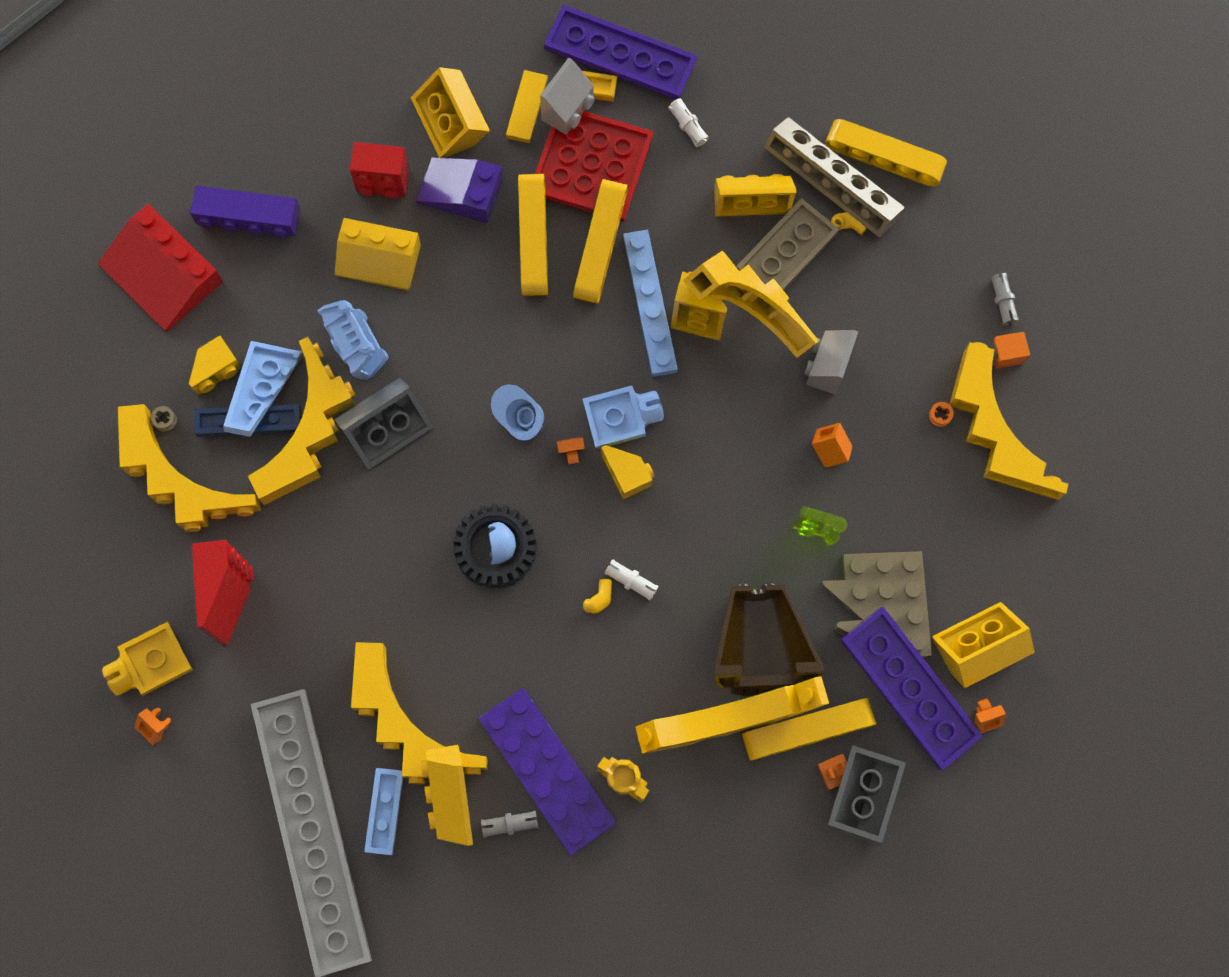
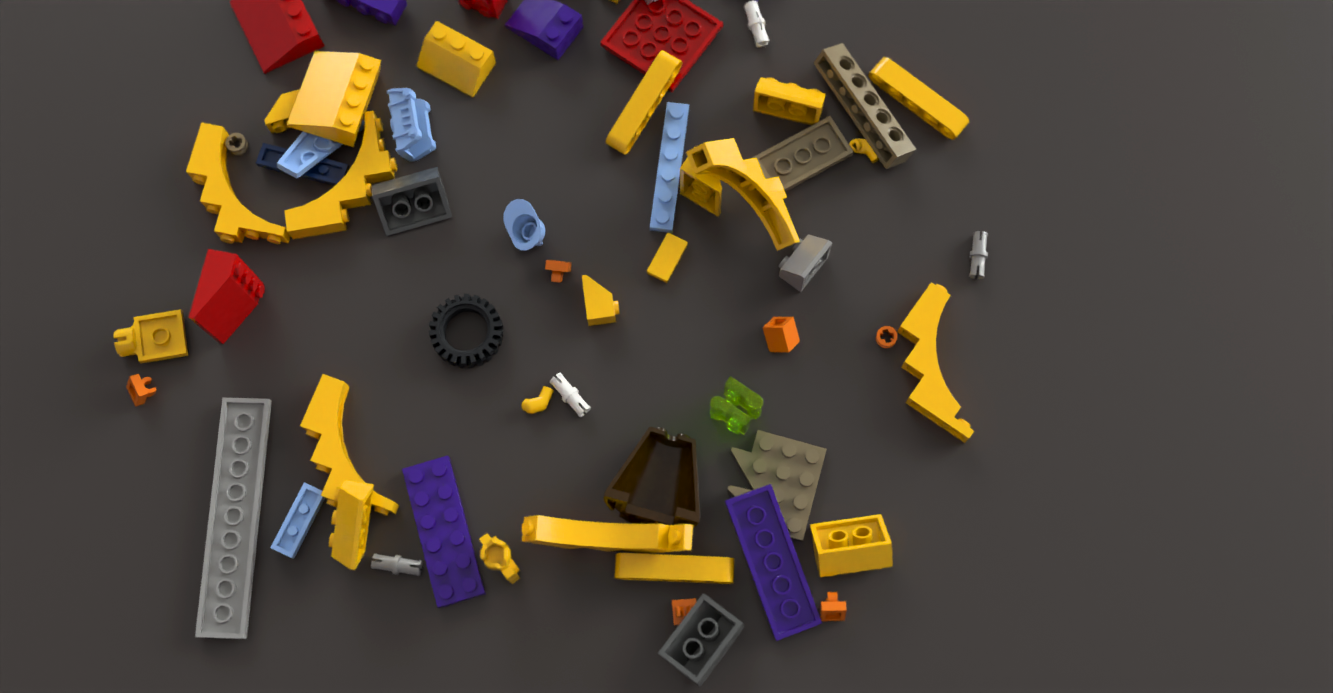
camera: 25 degrees right, 0 degrees up
(259, 332) = (335, 95): none -> yellow slope
(501, 542) = (470, 329): light blue hair -> none
(533, 234) = (589, 80): yellow beam -> none
(621, 415) = (610, 254): light blue plate -> none
(682, 400) = (667, 257): none -> yellow tile
(817, 549) = (736, 419): none -> clear neon green plate
(1011, 350) = (966, 300): orange panel -> none

